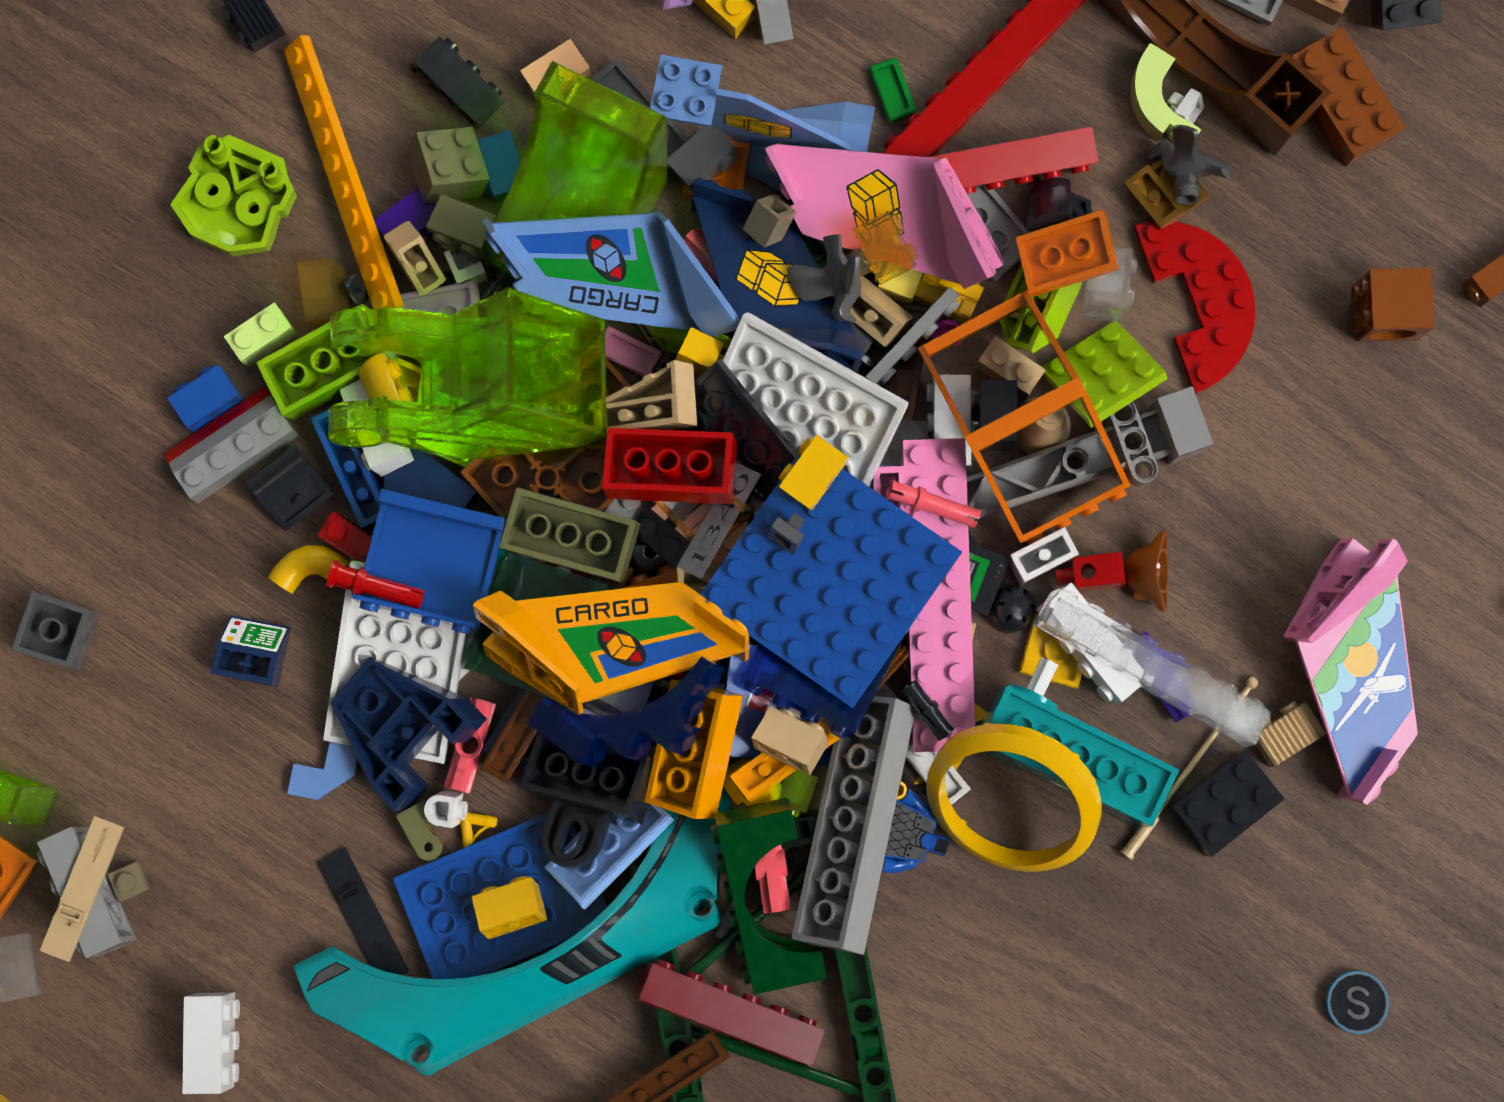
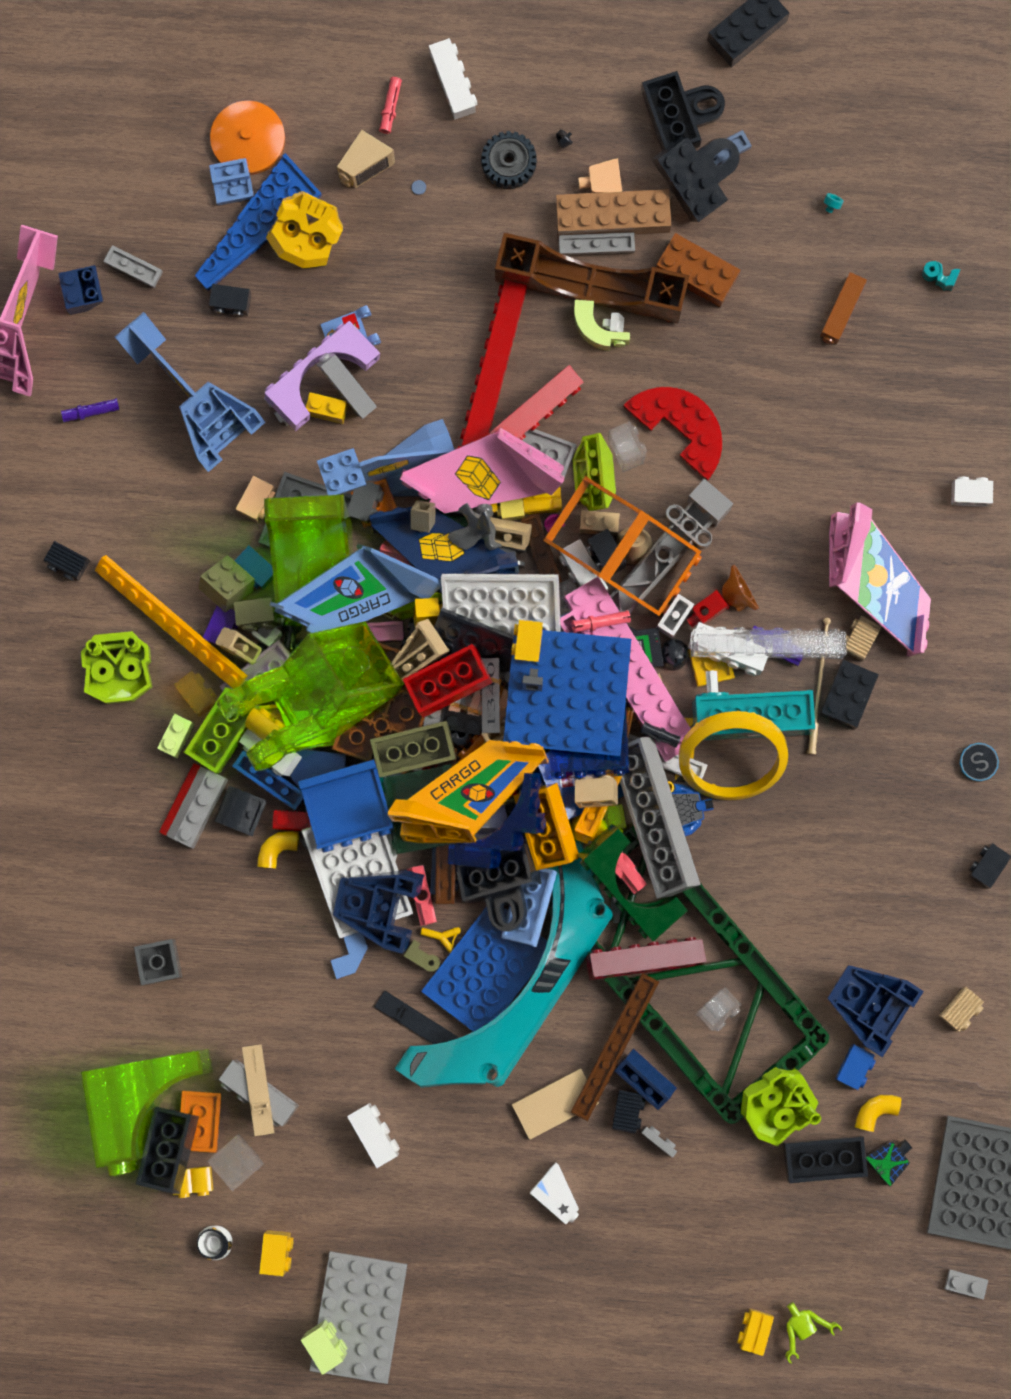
camera: 25 degrees left, 0 degrees up
(128, 882) = (277, 1076): dark tan plate -> none
(205, 397) = (164, 788): blue brick -> none
(251, 651) = (272, 912): dark blue slope -> none
(355, 289) = (214, 681): black piece -> none
(361, 582) = (316, 837): red pin -> none
(446, 809) = (429, 936): white plate -> none
(458, 81) = (203, 534): black wedge -> none
(509, 907) = (494, 969): yellow brick -> none
(885, 246) = (495, 495): clear yellow brick -> none
(892, 90) = (447, 404): green tile -> none
(924, 327) = (540, 527): light grey plate -> none
(1054, 203) = (577, 421): black brick -> none
(1067, 253) = (595, 443): orange plate -> none
(1111, 370) = (653, 493): lime plate -> none
(1154, 193) = (629, 376): pearl gold slope -> none
(1187, 163) = (633, 355): dark grey animal -> none
(1393, 304) = (788, 371): dark orange brick -> none

